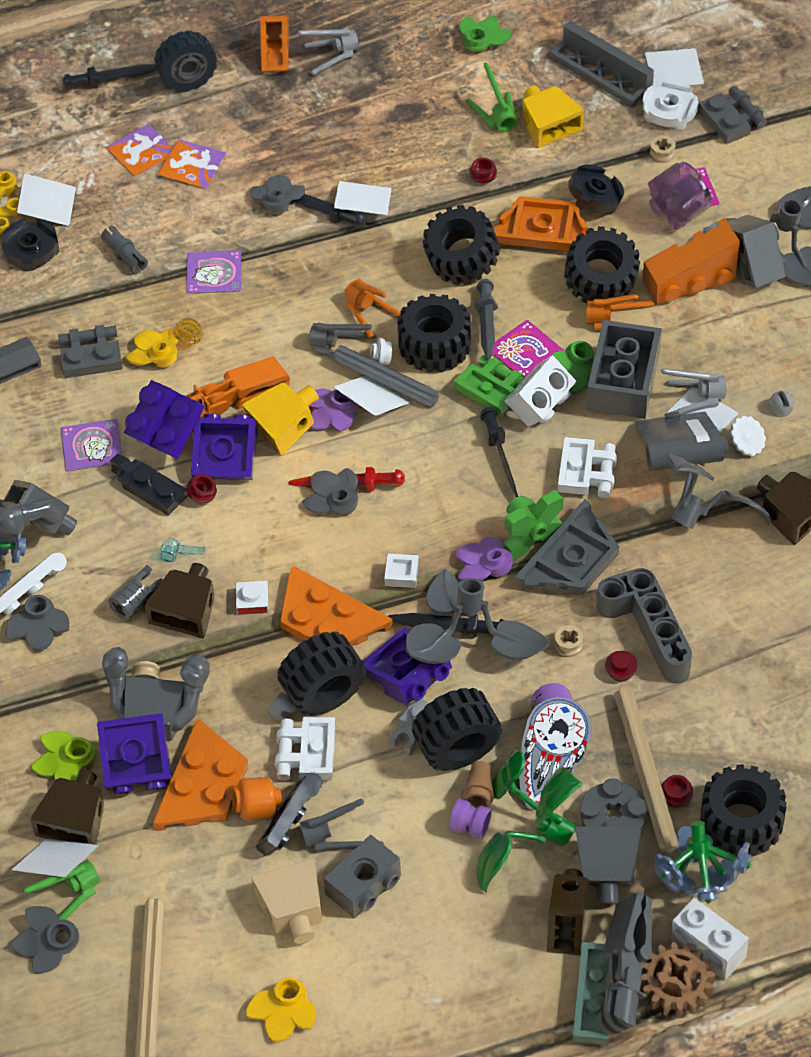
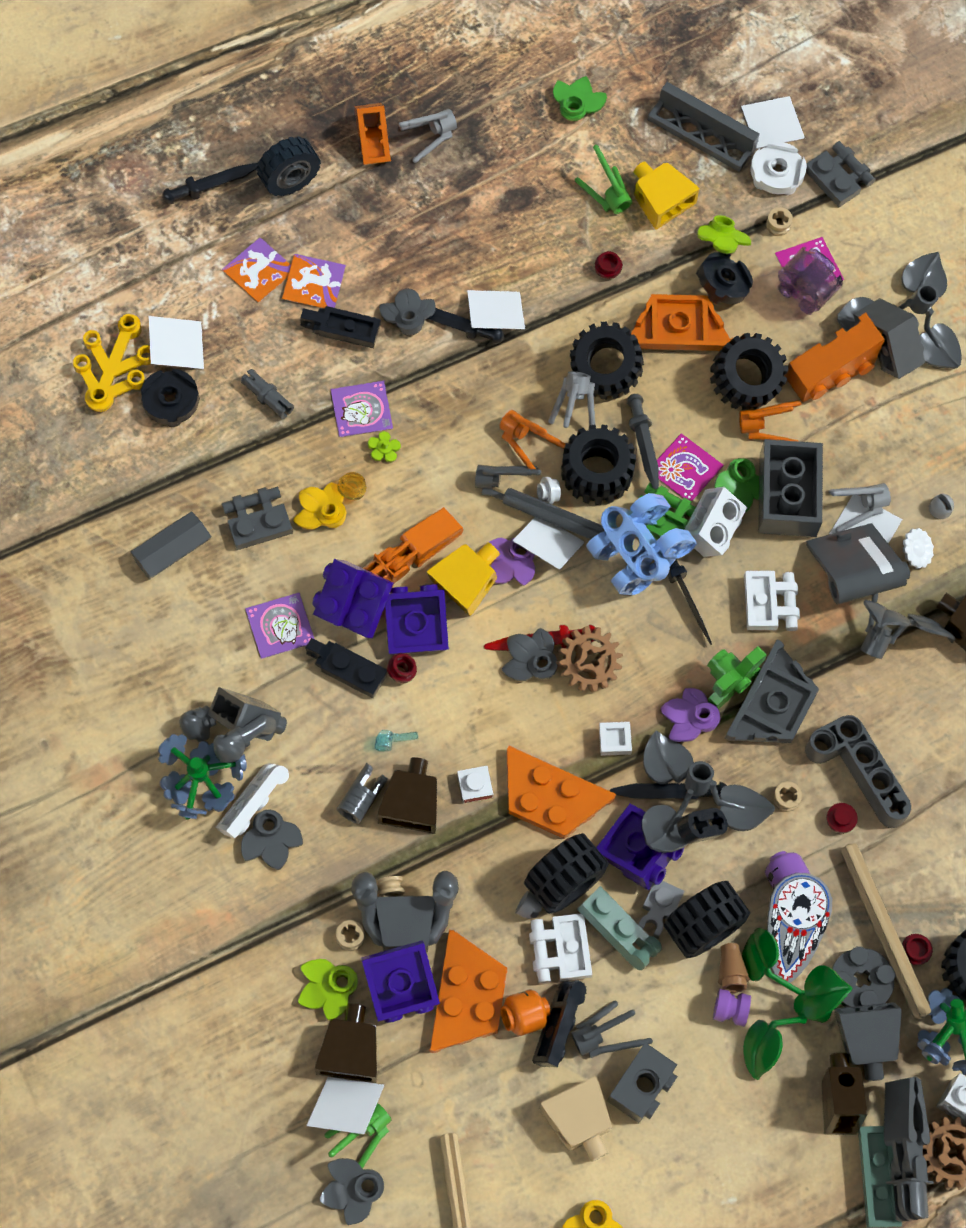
camera: 15 degrees left, 15 degrees up
(93, 706) = (358, 930): none -> tan bush
(209, 198) = (342, 325): none -> black hinge
(228, 303) = (382, 447): none -> lime plant
(369, 735) = (619, 929): none -> sand green plate
(395, 485) = (583, 649): none -> medium nougat gear
(422, 259) = (575, 385): none -> light grey plant
(459, 395) = (664, 551): none -> light blue piece
(468, 644) = (703, 830): none -> black beam
(601, 152) = (723, 235): none -> lime plate

